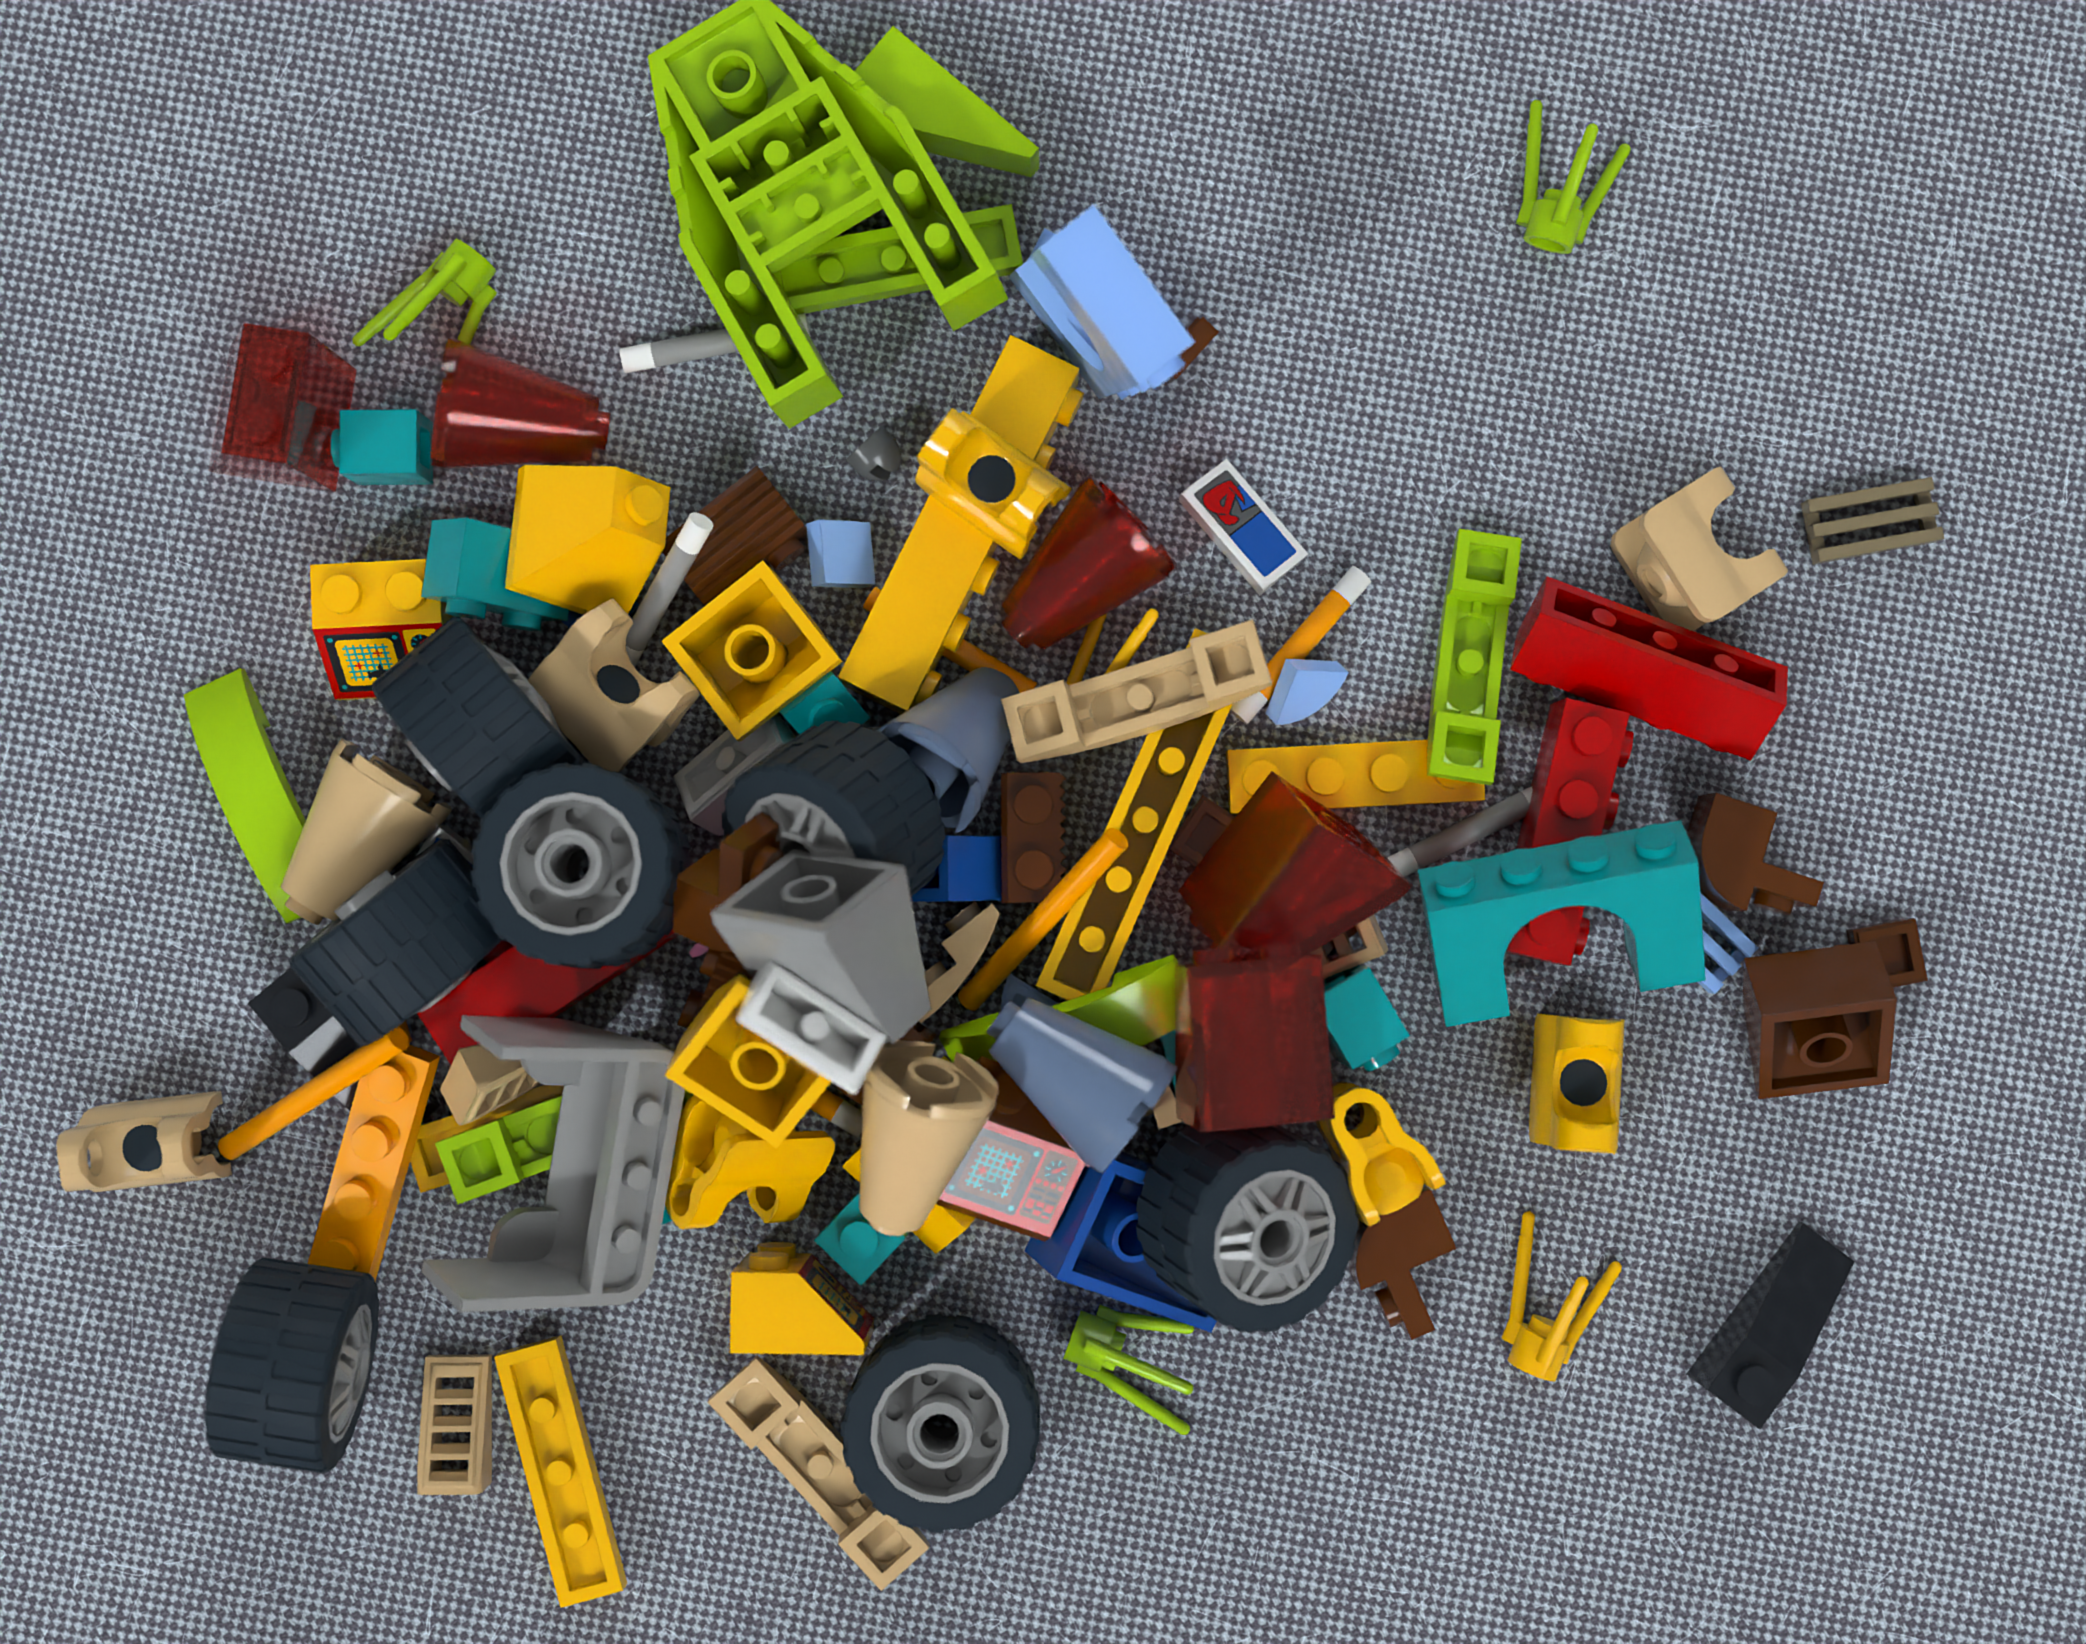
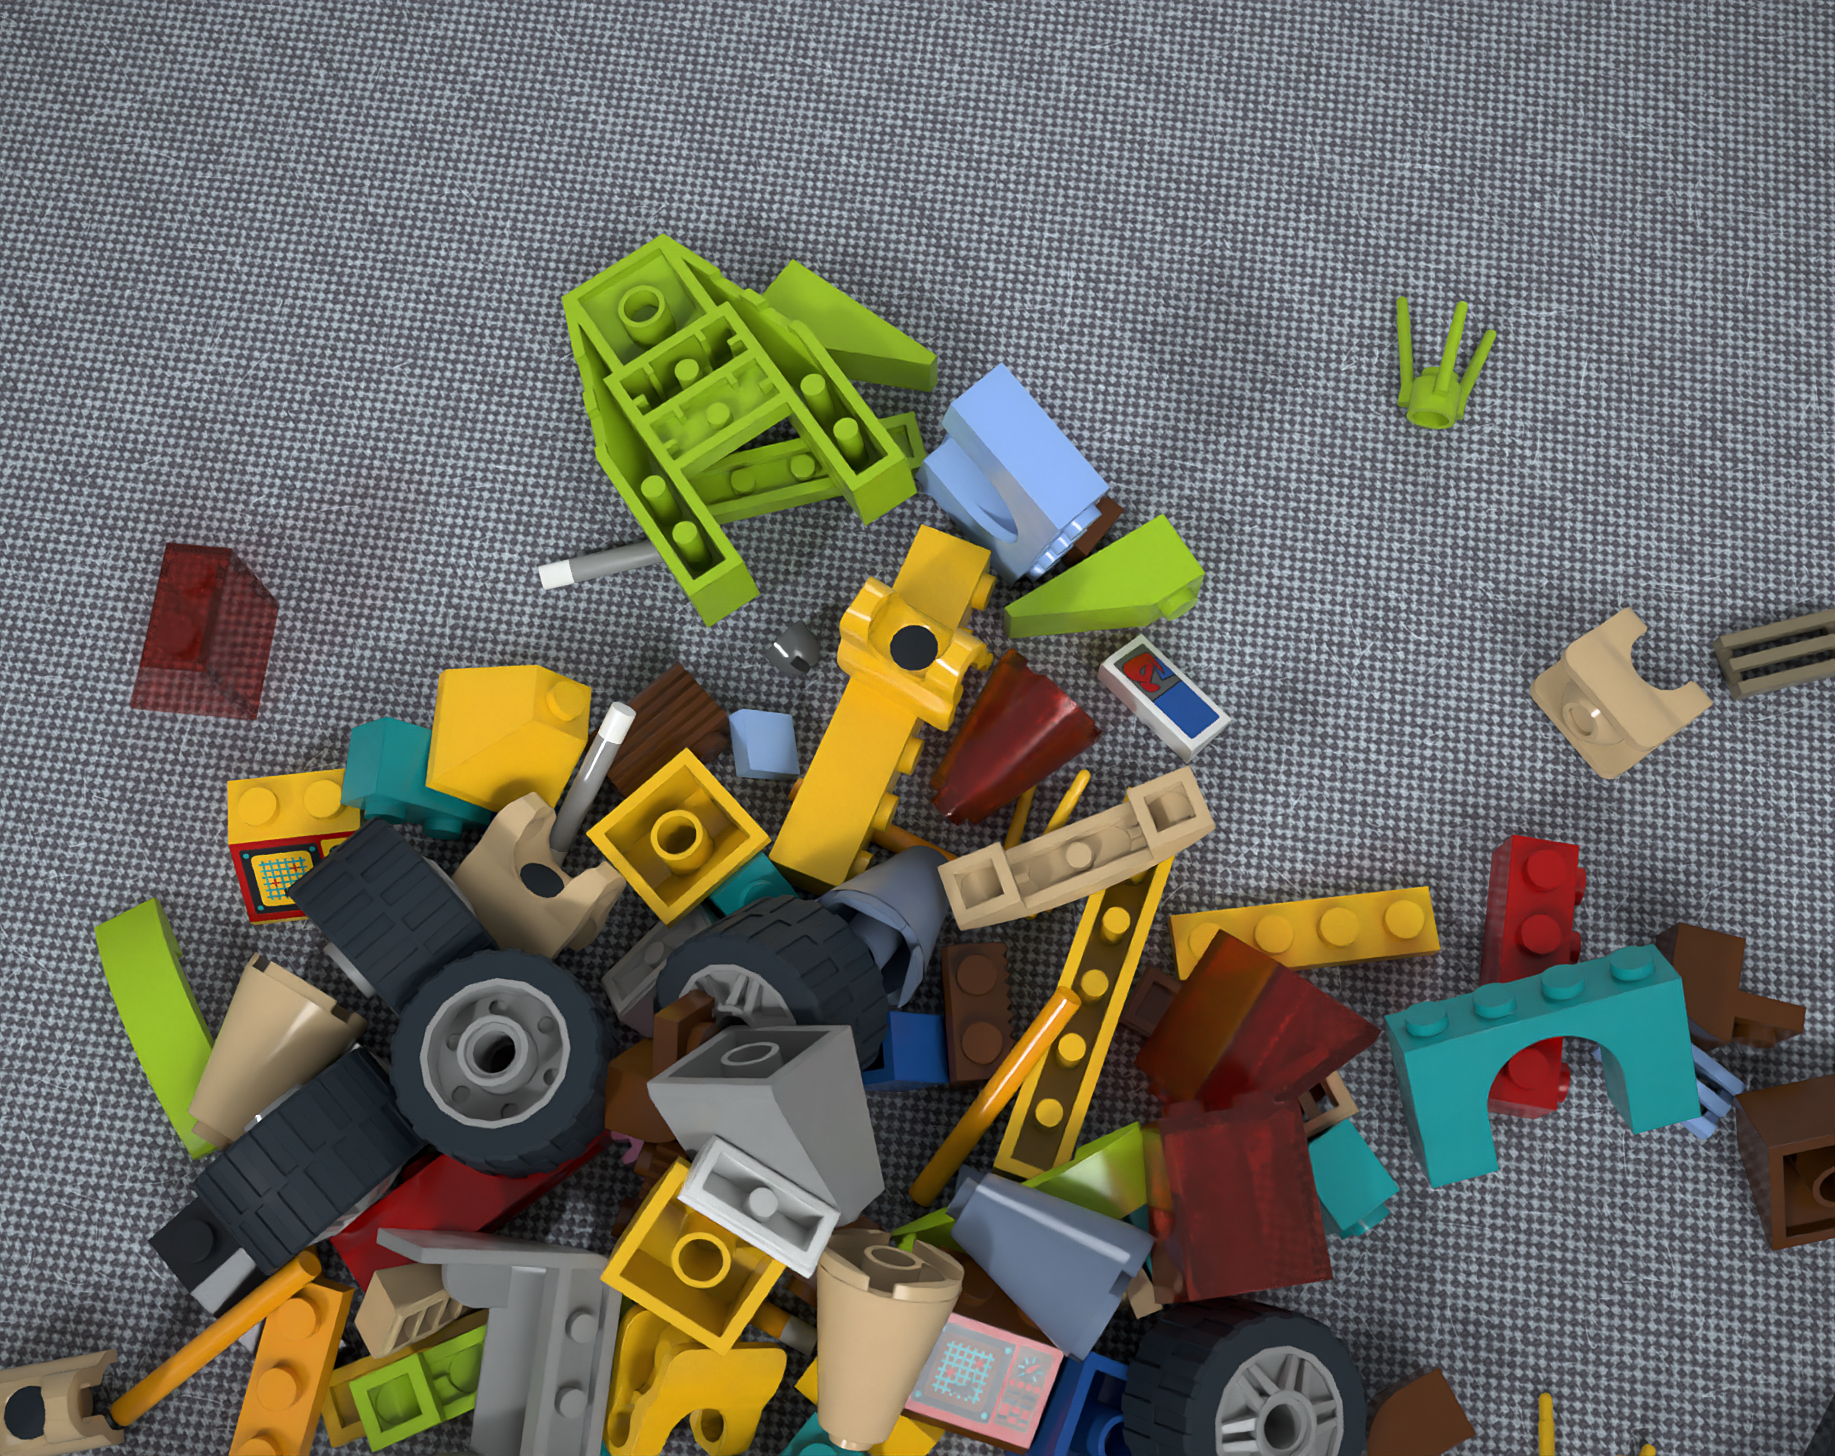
camera: 10 degrees left, 15 degrees down
(384, 447) = (305, 670): teal brick -> none
(456, 275) = (378, 509): lime plant -> none
(510, 414) = (421, 626): clear red cone -> none
(970, 937) = (916, 1130): tan slope -> none
(1208, 410) = (1116, 588): none -> lime slope
(1304, 689) = (1242, 850): light blue tile -> none
(1306, 637) = (1233, 807): light orange bar -> none
(1381, 1160) = (1386, 1332): yellow piece -> none
(1462, 833) = (1428, 983): light grey bar -> none
(1470, 657) = (1405, 807): lime slope -> none
(1576, 1083) = (1578, 1237): yellow piece -> none
(1650, 669) = (1594, 802): red brick -> none

